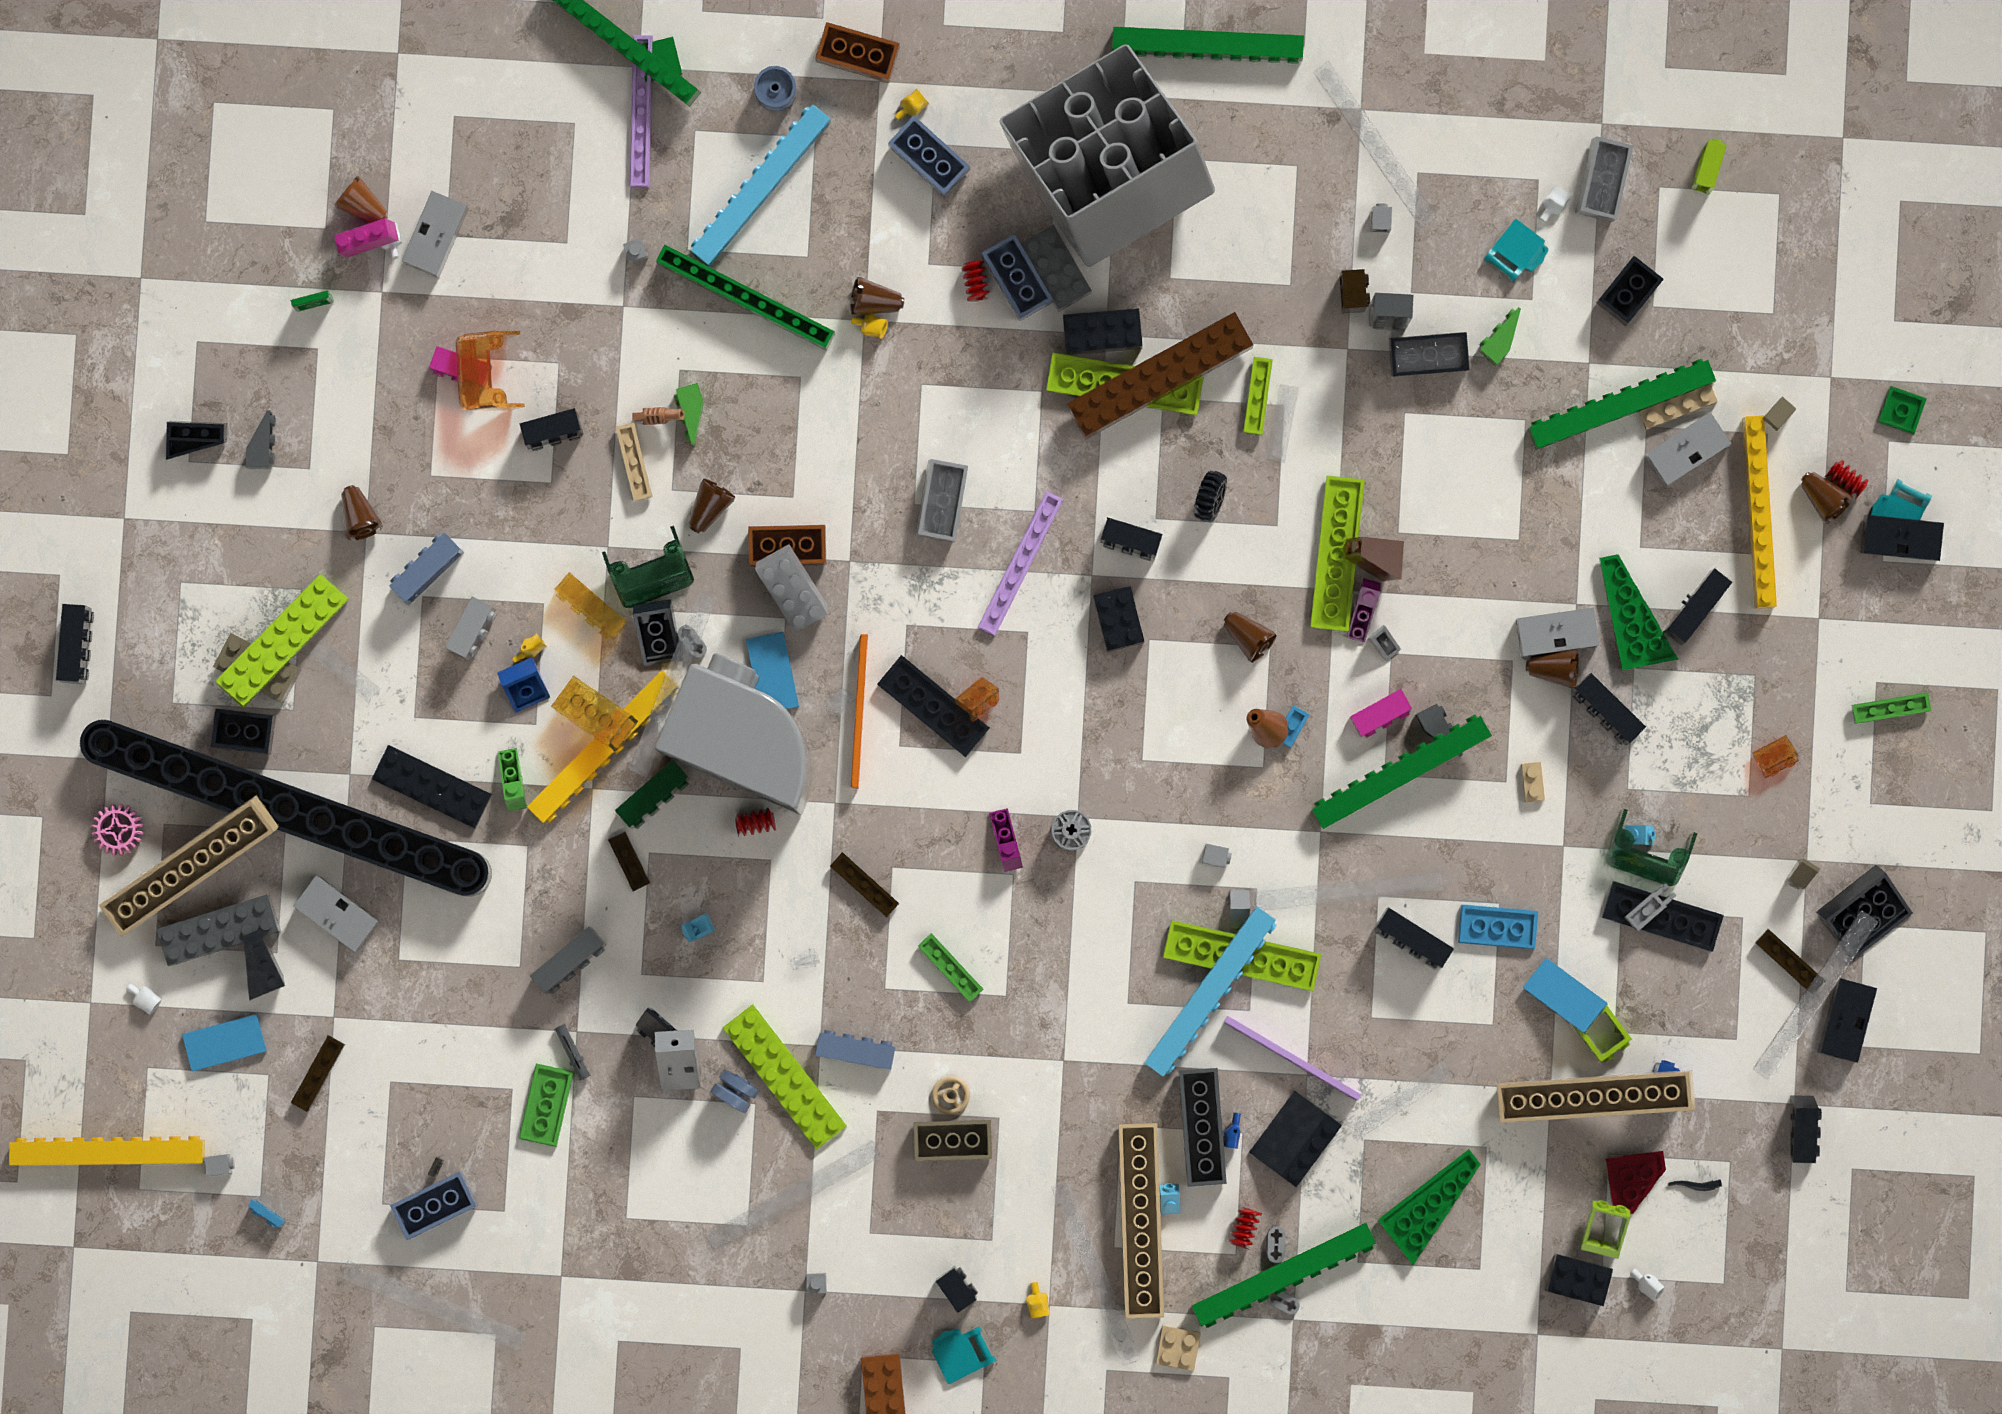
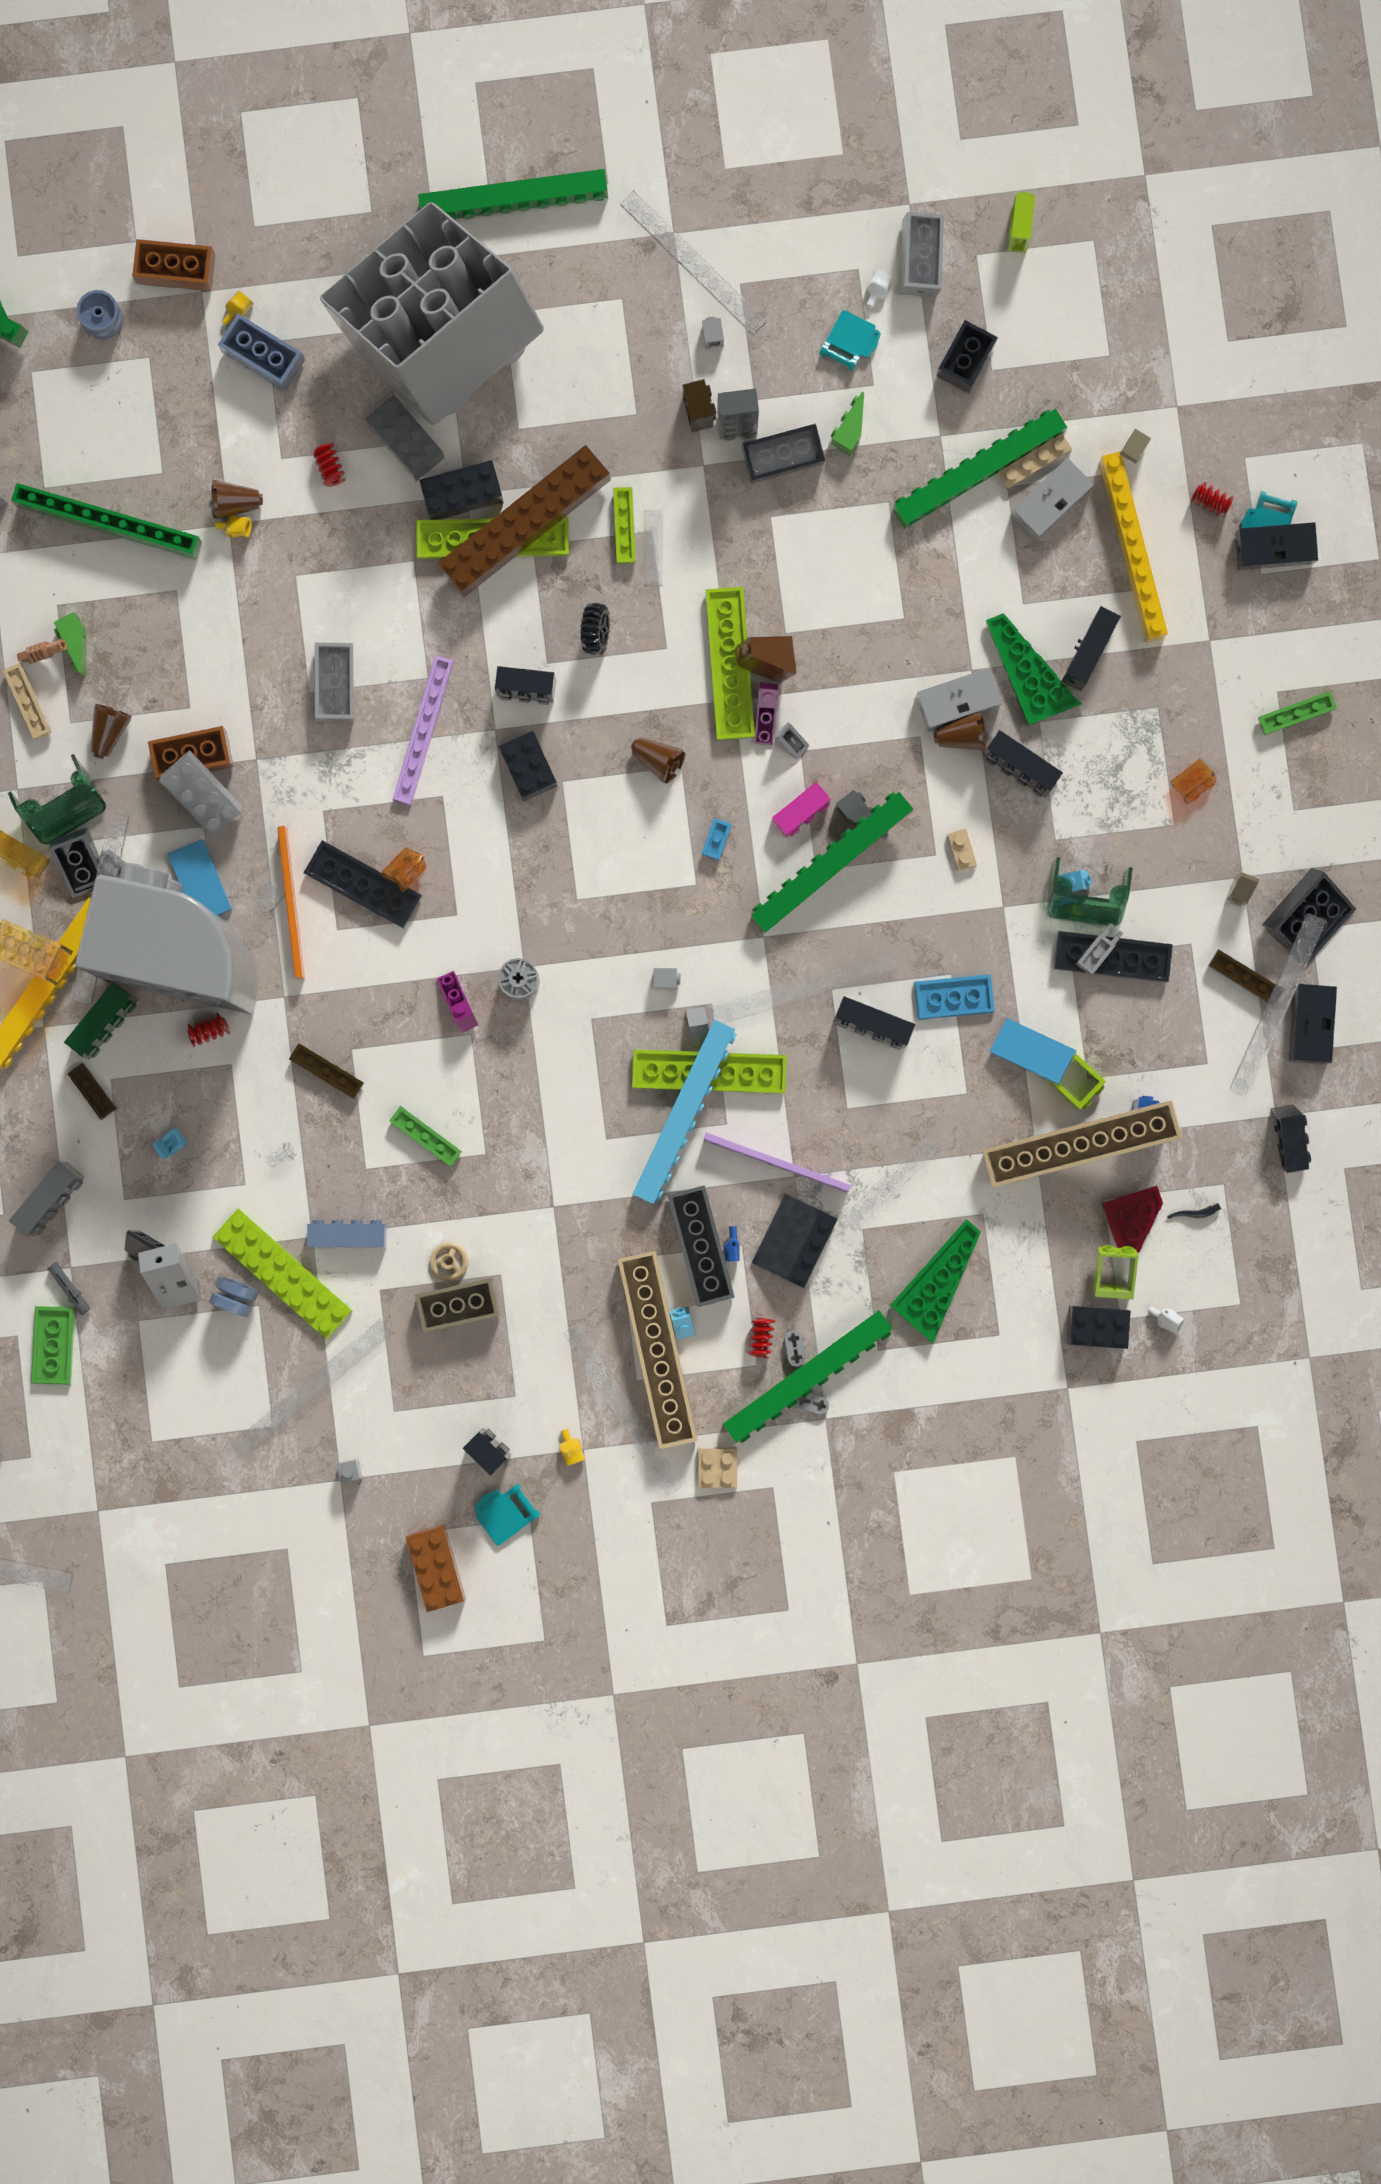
camera: 10 degrees left, 0 degrees up
(761, 185) = (103, 411): medium azure brick -> none
(1017, 277) = (368, 453): sand blue brick -> none
(1267, 727) = (692, 843): dark orange cone -> none
(1825, 496) = (1194, 520): reddish brown cone -> none
(1902, 410) = (1252, 425): green tile -> none

